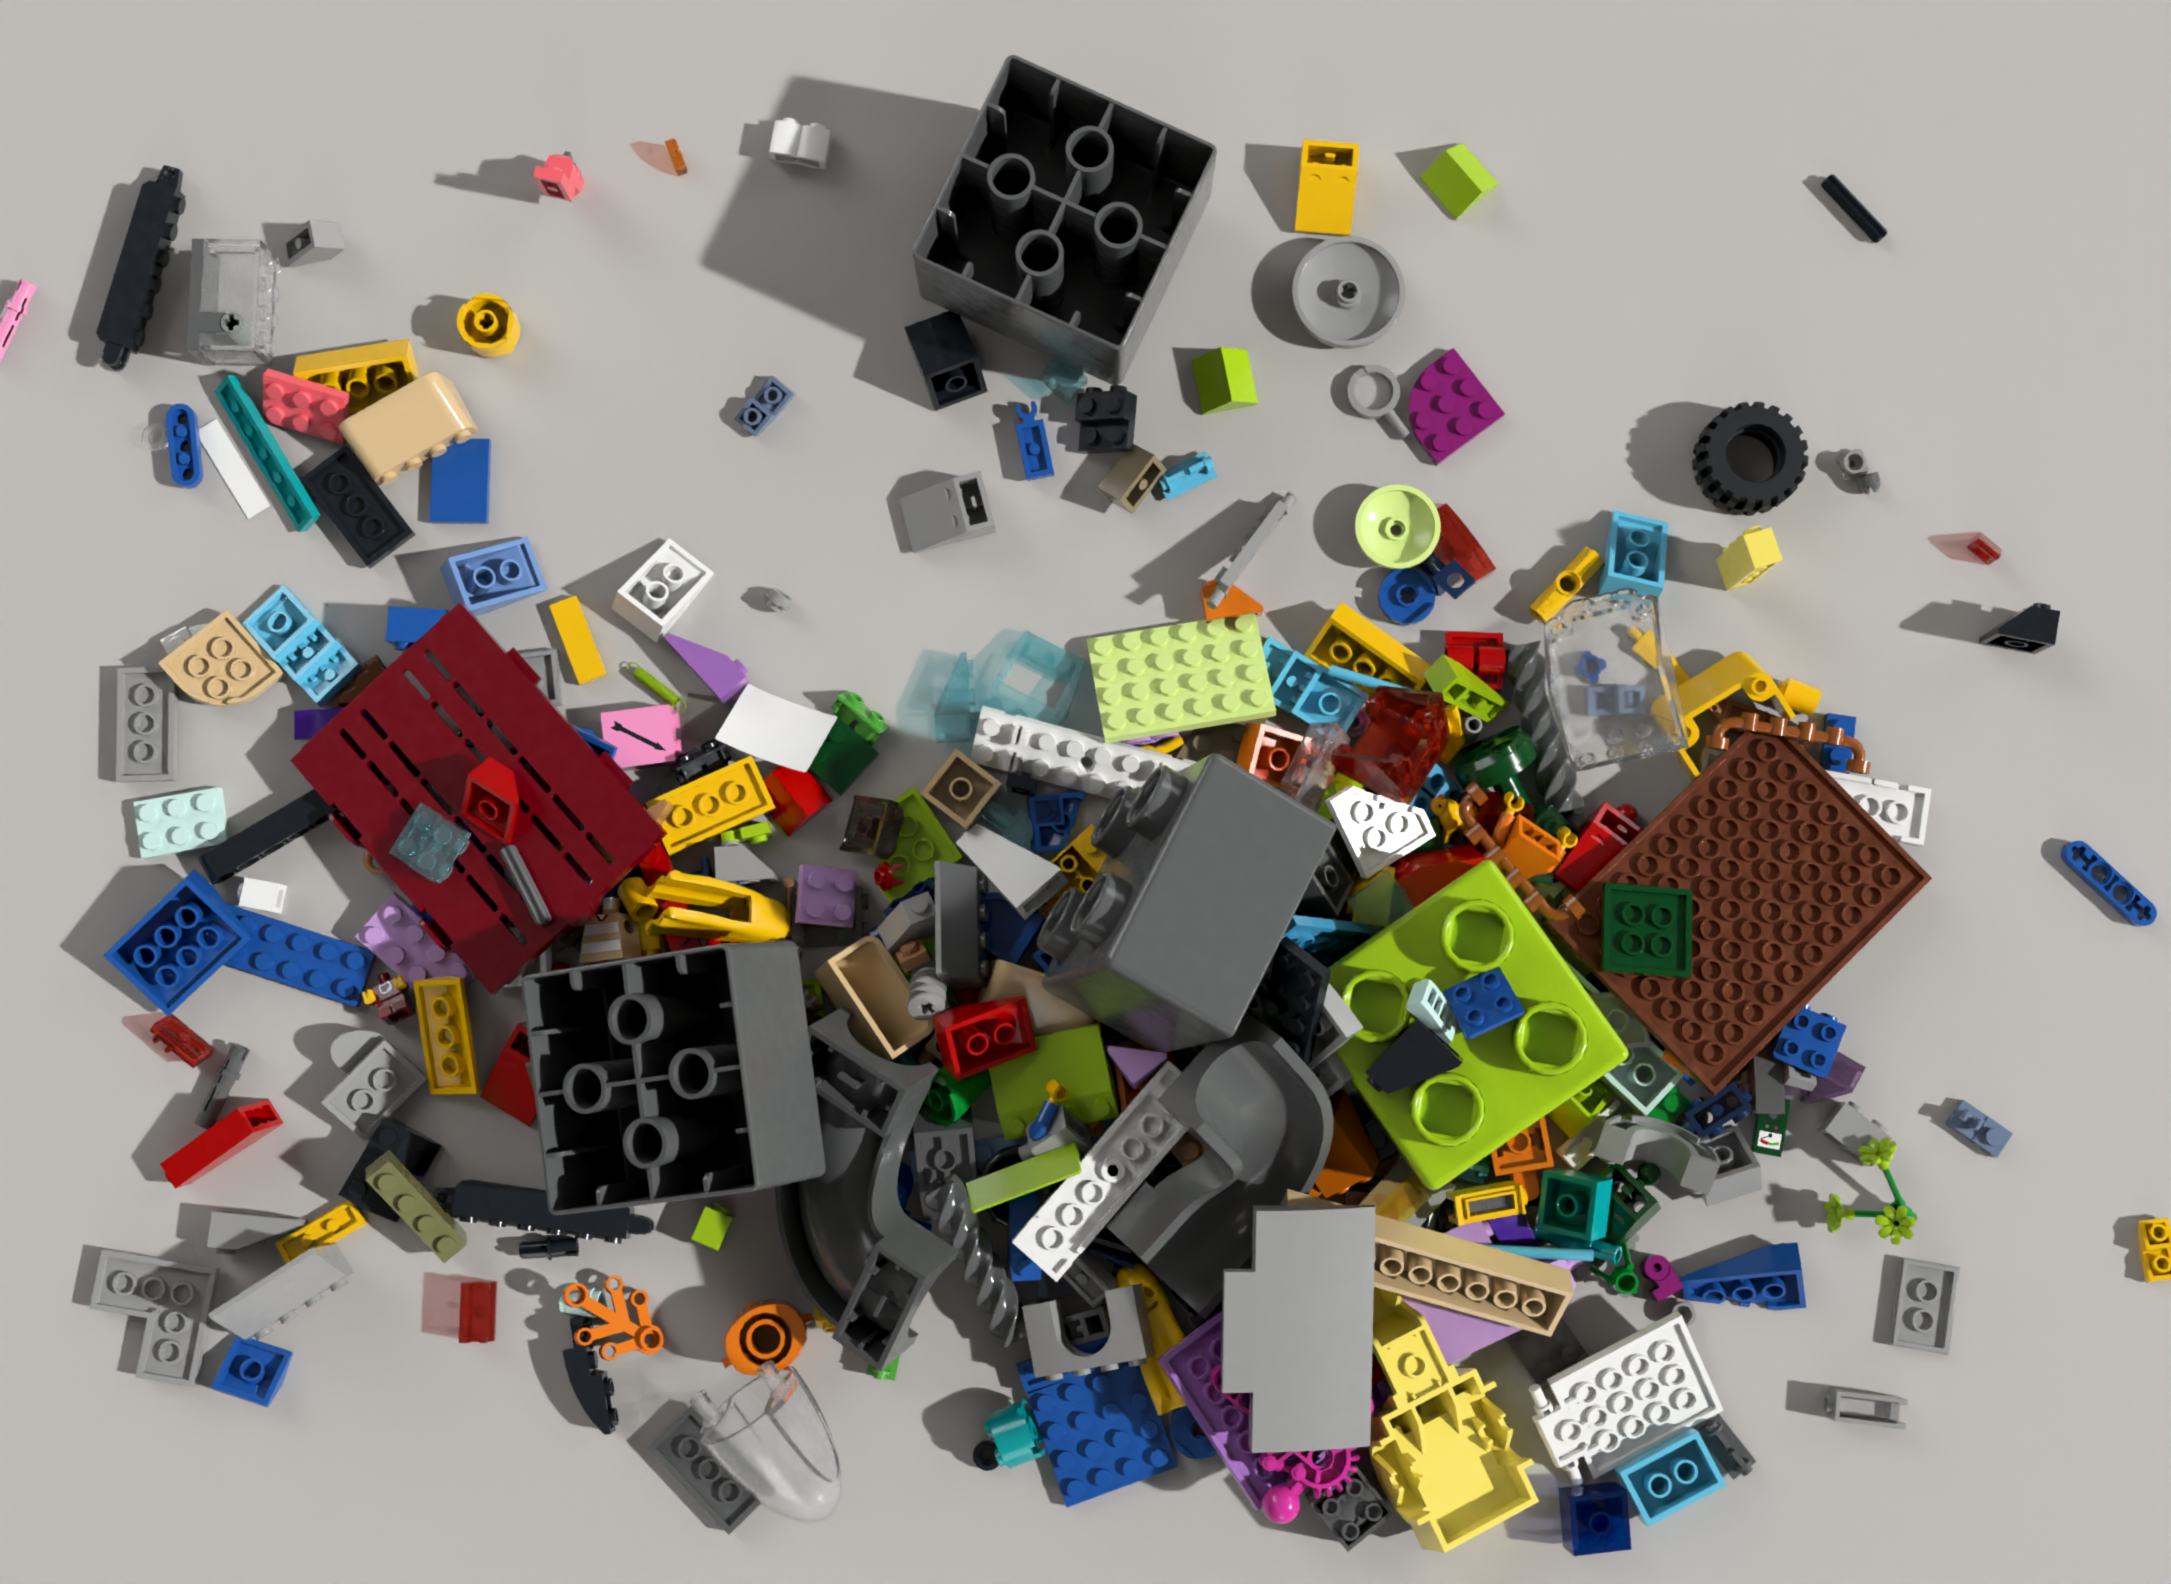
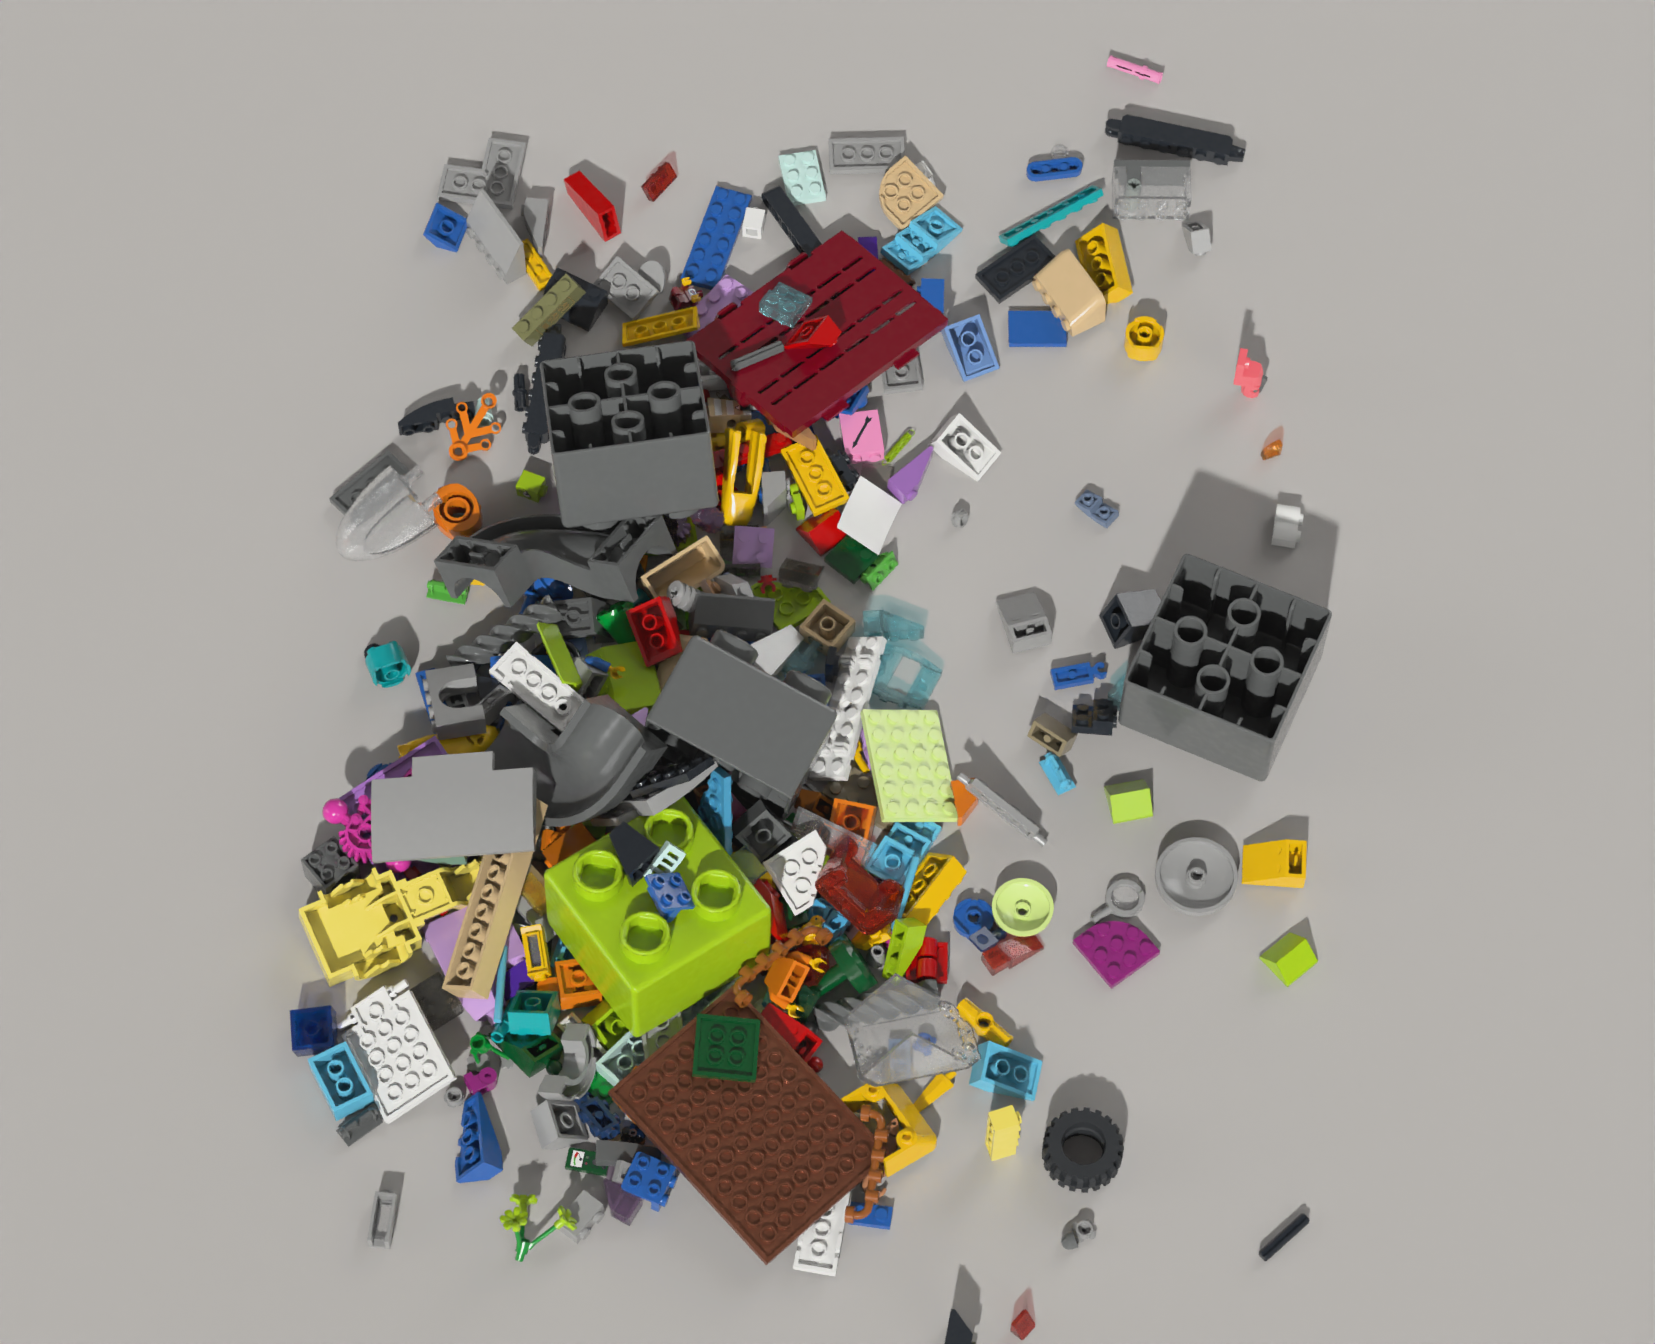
camera: 90 degrees right, 20 degrees down
(179, 943) = (722, 174): blue slope -> none
(226, 1077) = (636, 208): dark grey pin -> none
(232, 469) = (1041, 198): white sticker -> none
(304, 406) = (1084, 231): coral plate -> none
(477, 1311) = (479, 351): clear red hinge -> none
(578, 640) = (929, 400): yellow tile -> none
(1101, 1432) = (383, 720): blue plate -> none
(1800, 696) = (904, 1185): yellow brick -> none
(1924, 1306) = (454, 1266): light grey tile -> none
(1978, 1128) = (583, 1308): sand blue plate -> none

